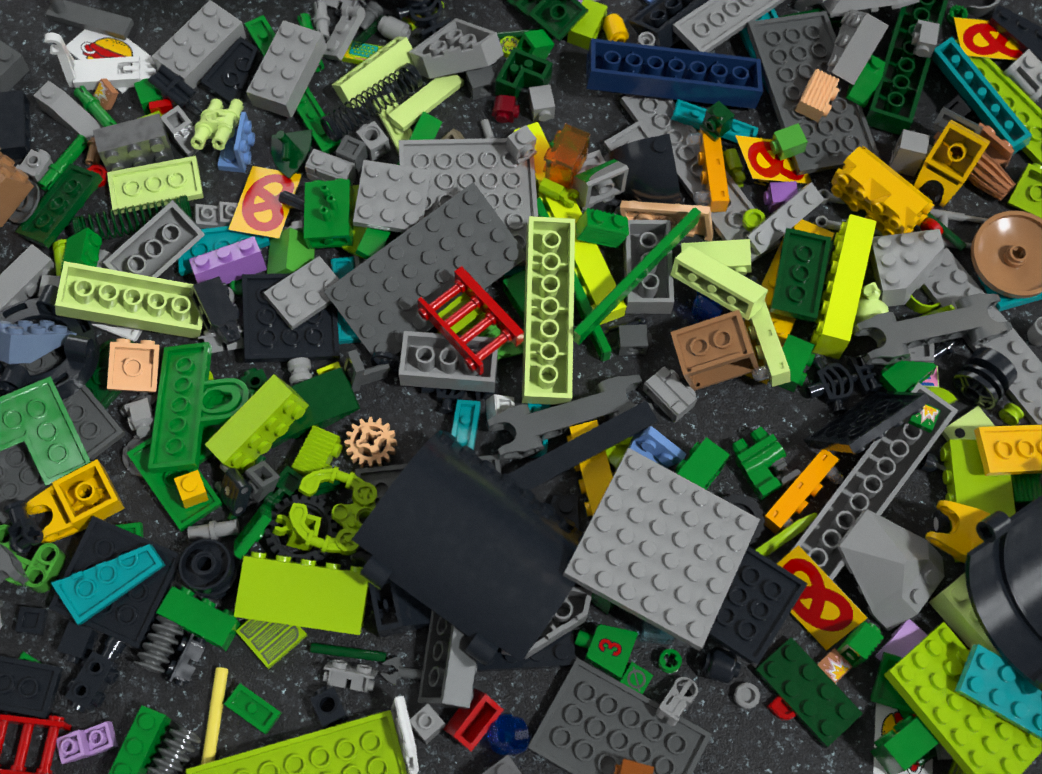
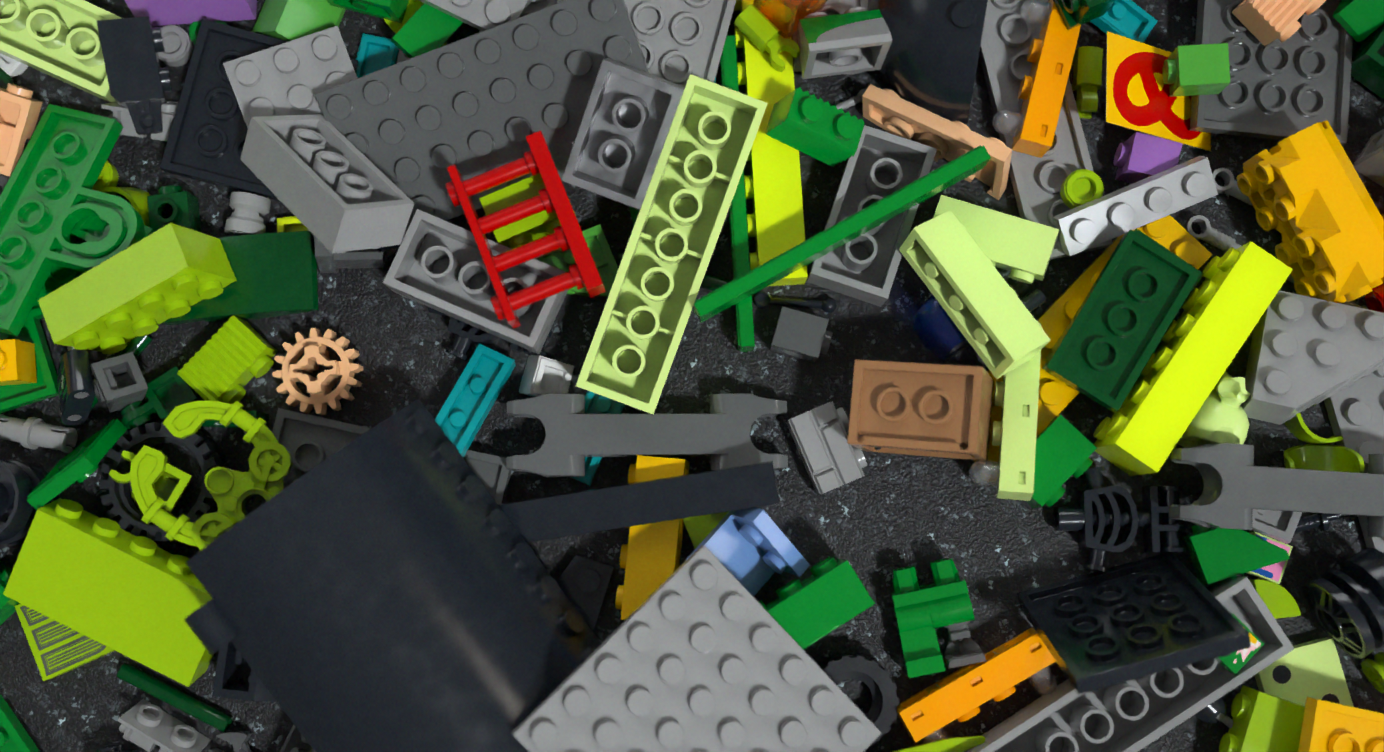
camera: 25 degrees right, 15 degrees up
(350, 330) = (326, 182): none -> light grey brick
(505, 255) = (622, 133): none -> flat silver brick

